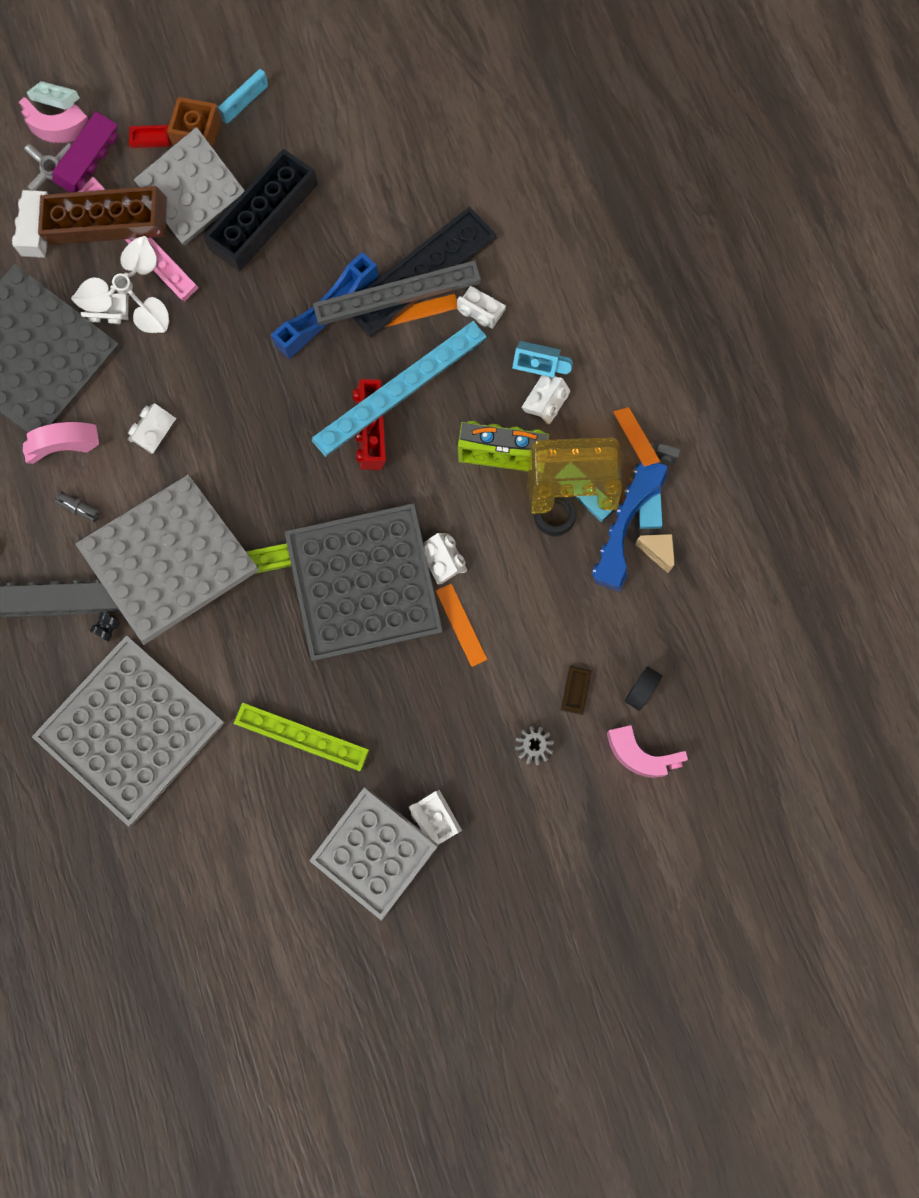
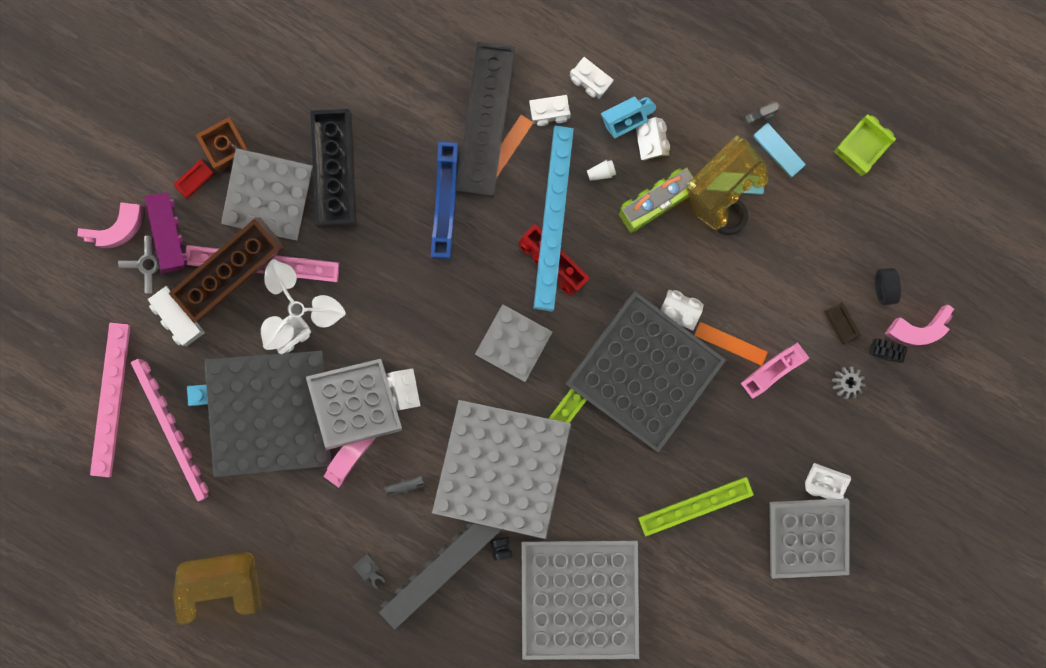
camera: 45 degrees left, 10 degrees up
(53, 95) = (97, 209): light aqua plate -> none
(97, 400) = (353, 404): none -> light grey plate
(243, 96) = (236, 91): medium azure tile -> none
(277, 468) = (513, 343): none -> light grey plate
(396, 293) = (487, 150): dark grey plate -> none
(474, 676) = (774, 370): none -> bright pink arch
(480, 389) = (602, 171): none -> white cone
(538, 309) = (591, 78): none -> white bracket
(594, 745) = (888, 350): none -> black tyre
(636, 436) = (739, 116): orange sticker -> none
(647, 483) = (774, 143): blue arch -> none
(659, 549) = (819, 182): tan slope -> none
(730, 553) = (865, 144): none -> lime panel

